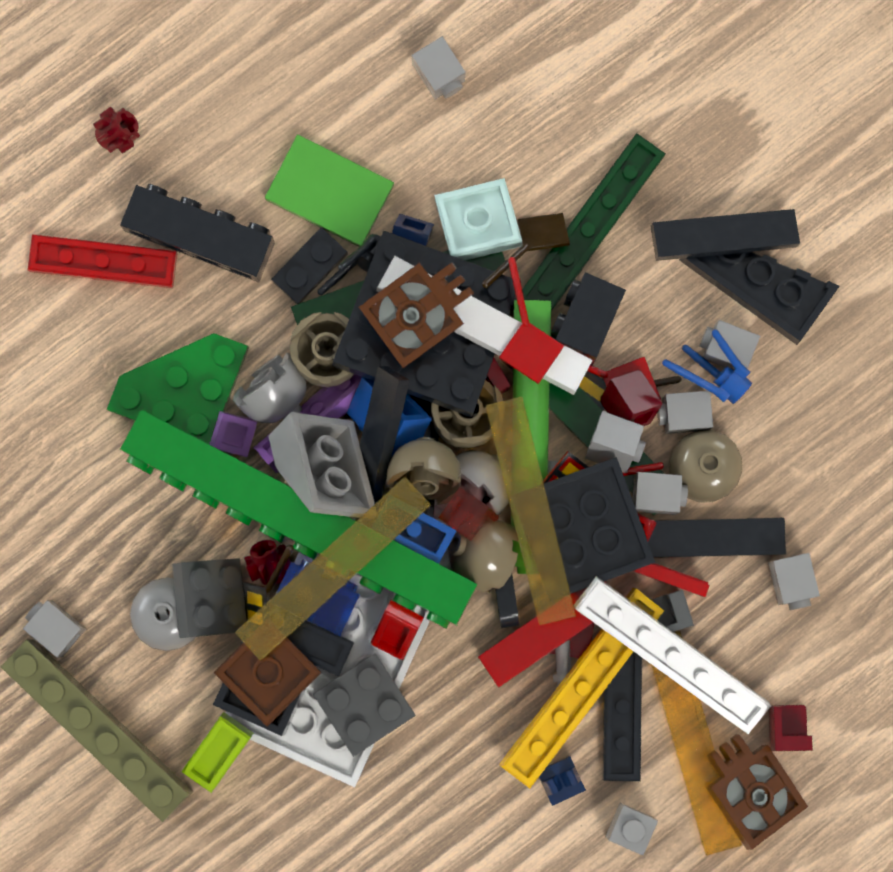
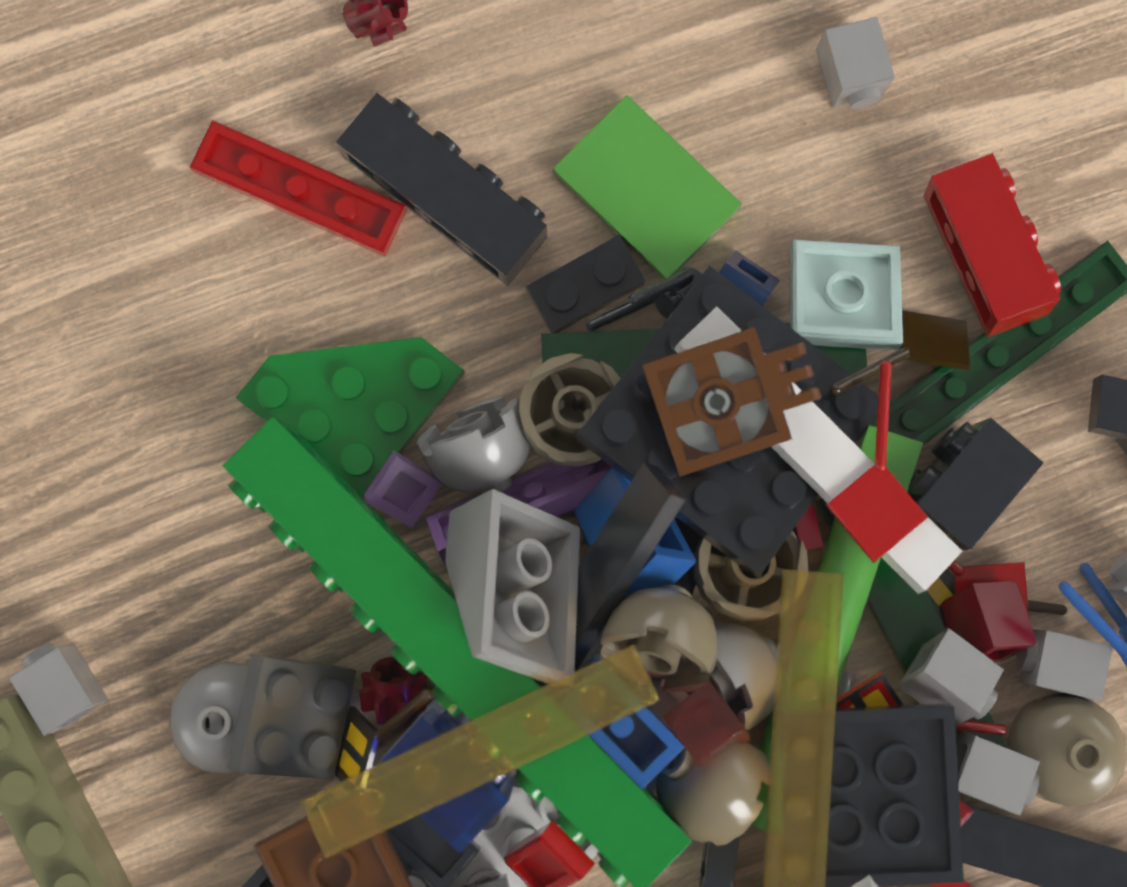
camera: 20 degrees right, 0 degrees up
(561, 159) = (992, 244): none -> red brick

